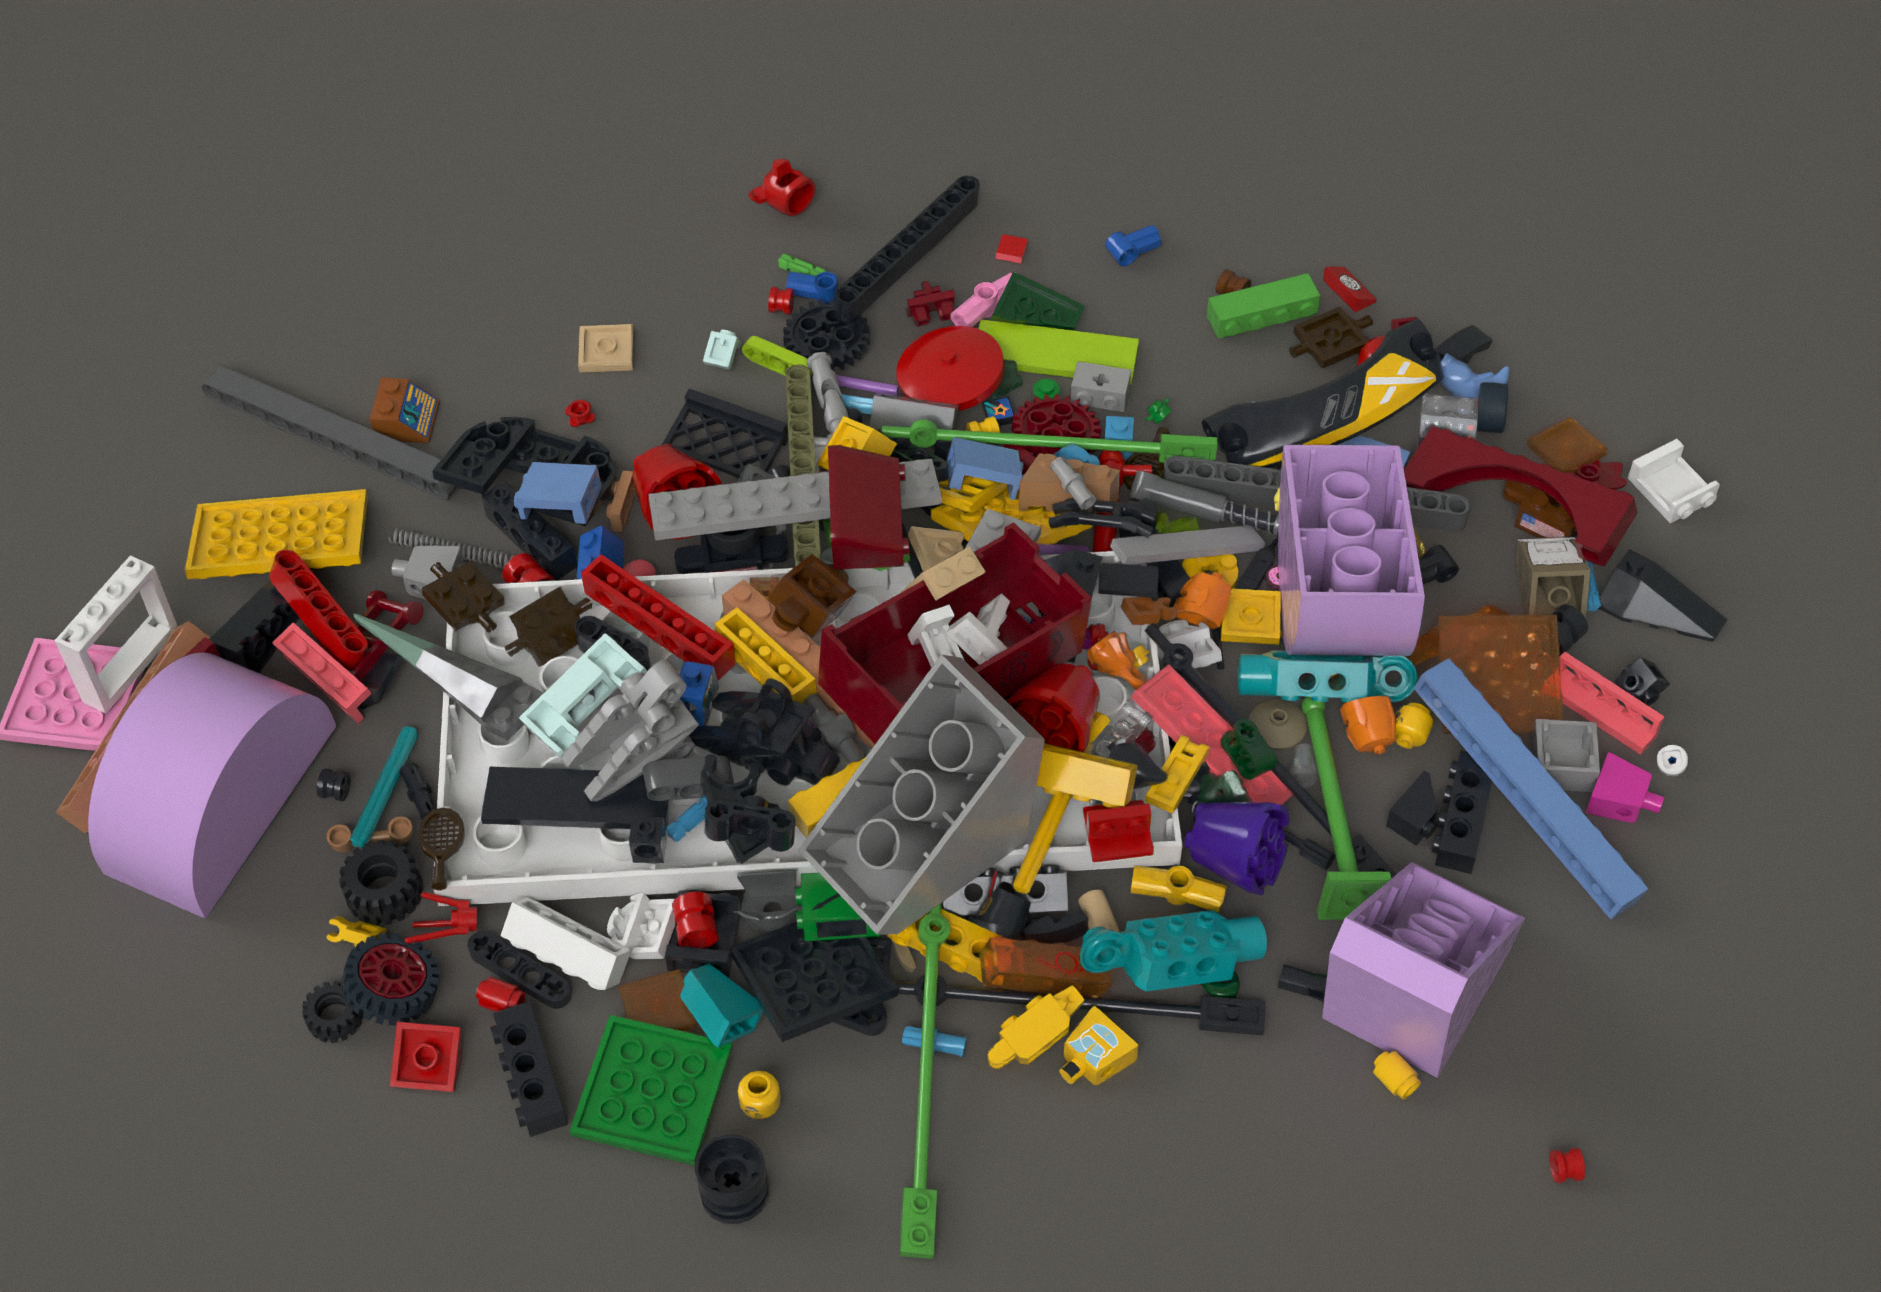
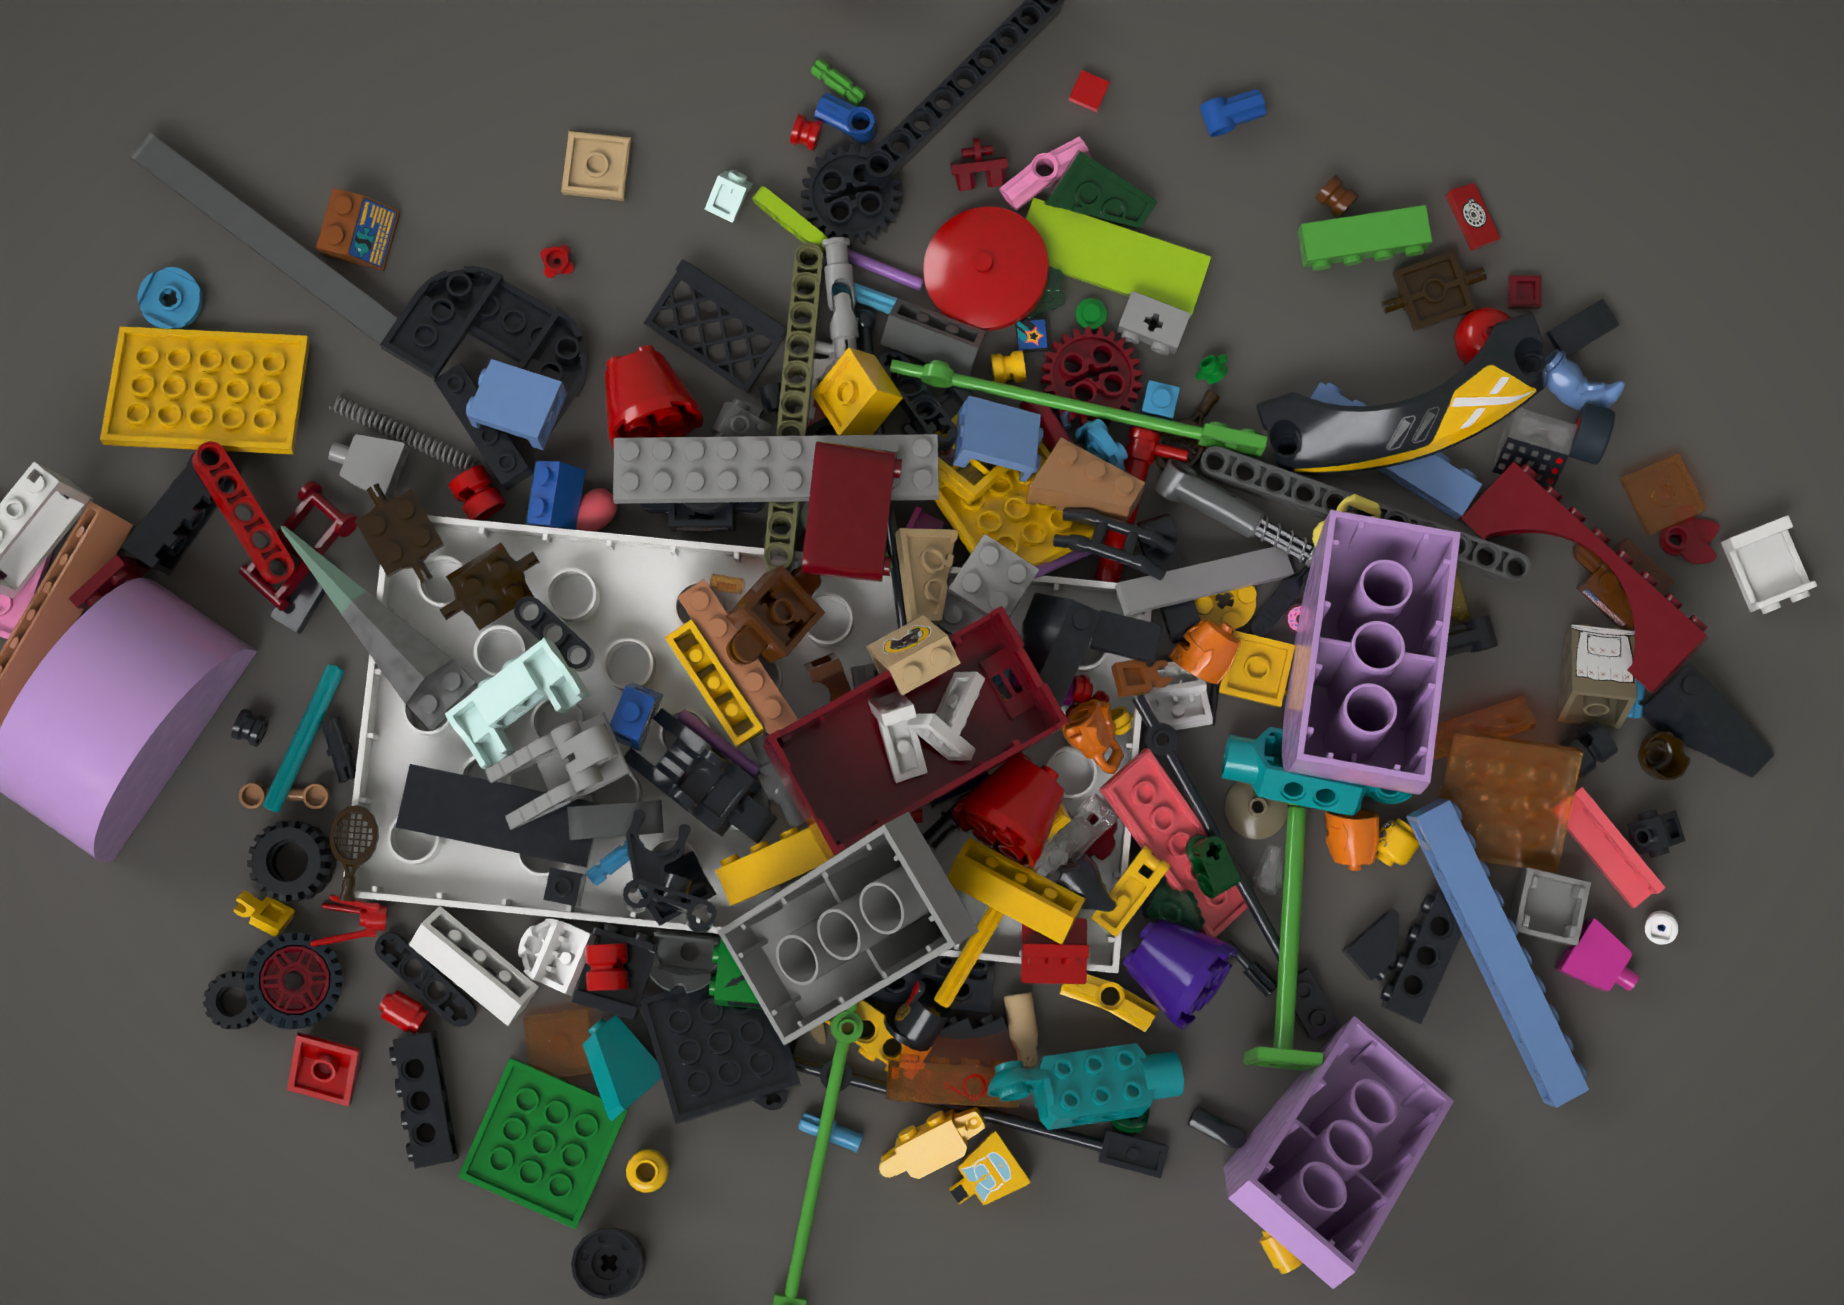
camera: 10 degrees right, 30 degrees up
(246, 467) = (165, 282): none -> dark azure plate
(322, 670) = (244, 586): coral fence -> none
(620, 508) = (586, 410): medium nougat plate -> none
(656, 616) = (605, 607): red brick -> none
(1072, 483) = (1087, 504): light grey pin -> none
(1181, 525) = (1198, 538): clear neon green bracket -> none
(1628, 628) = (1663, 756): none -> dark brown hair

